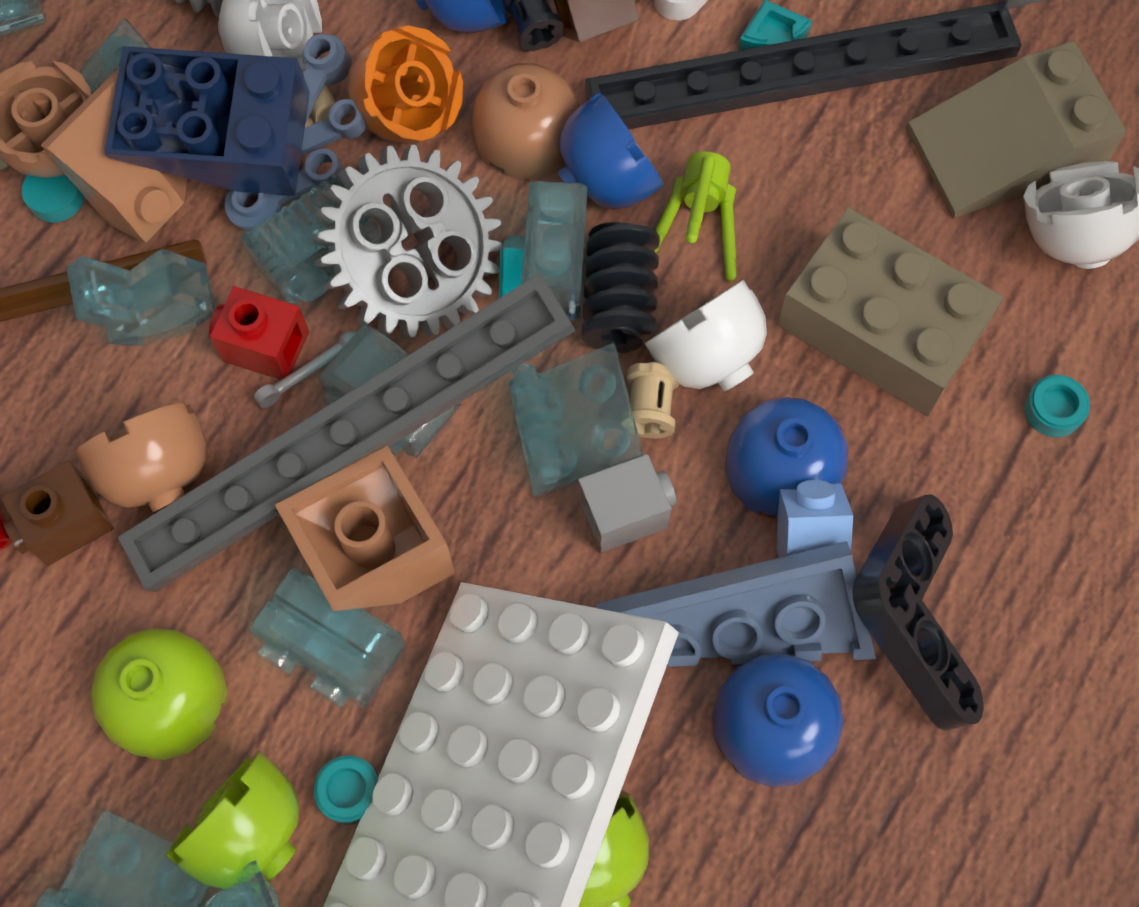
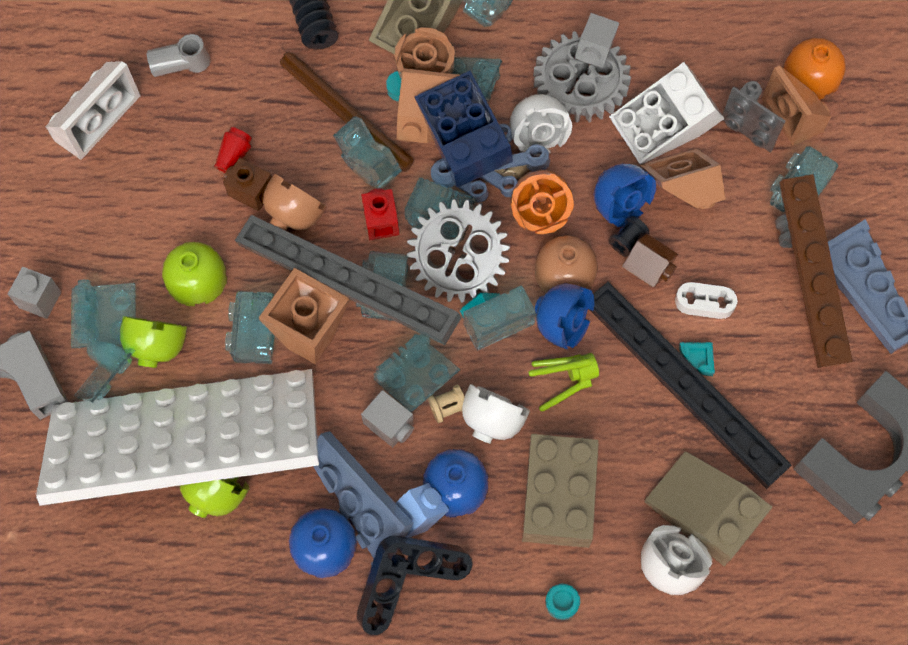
camera: 60 degrees right, 0 degrees up
(270, 393) = (356, 236): light grey hinge -> none
(345, 789) = (193, 372): teal tile -> none
(620, 285) = (498, 356): black piece -> none

